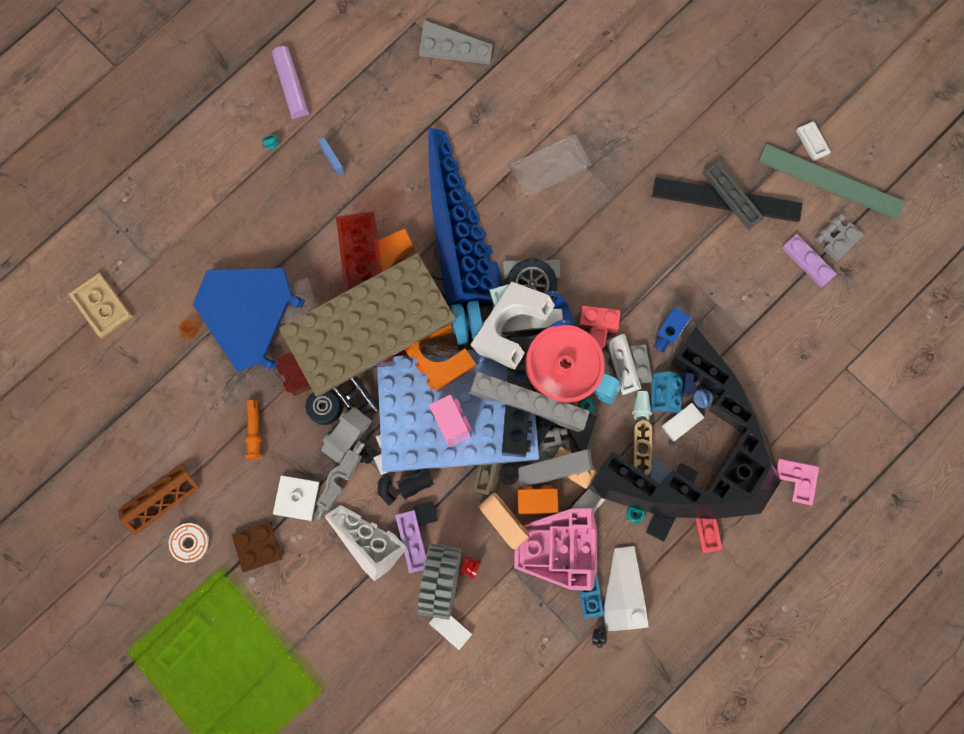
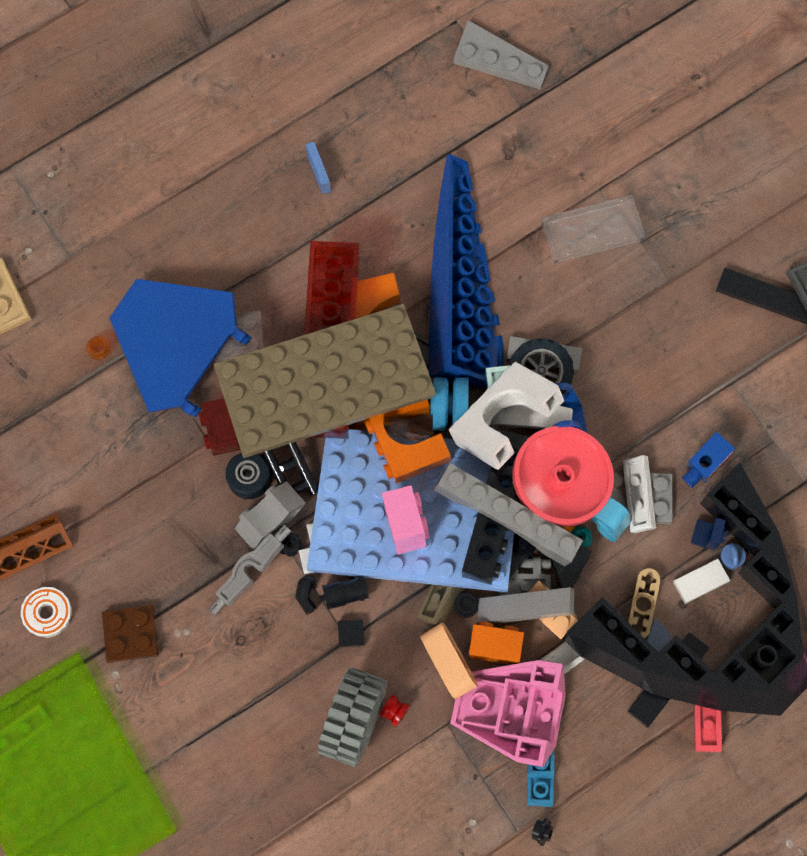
camera: 10 degrees right, 5 degrees down
(253, 439) = (152, 498): orange pin -> none
(270, 142) = (245, 136): teal plate -> none
(290, 82) = (284, 67): lavender brick -> none
(296, 498) = (191, 582): white plate -> none
(370, 546) = (272, 659): white wedge -> none
(412, 539) = (326, 663): lavender plate -> none
(451, 630) = (354, 785): white tile -> none
(599, 322) = (618, 435): coral brick -> none
(624, 598) = (584, 789): white wedge -> none
(635, 519) = (615, 691): teal plate -> none
(642, 407) = (652, 552): light aqua cone -> none
(666, 392) = (687, 539): dark azure bracket -> none

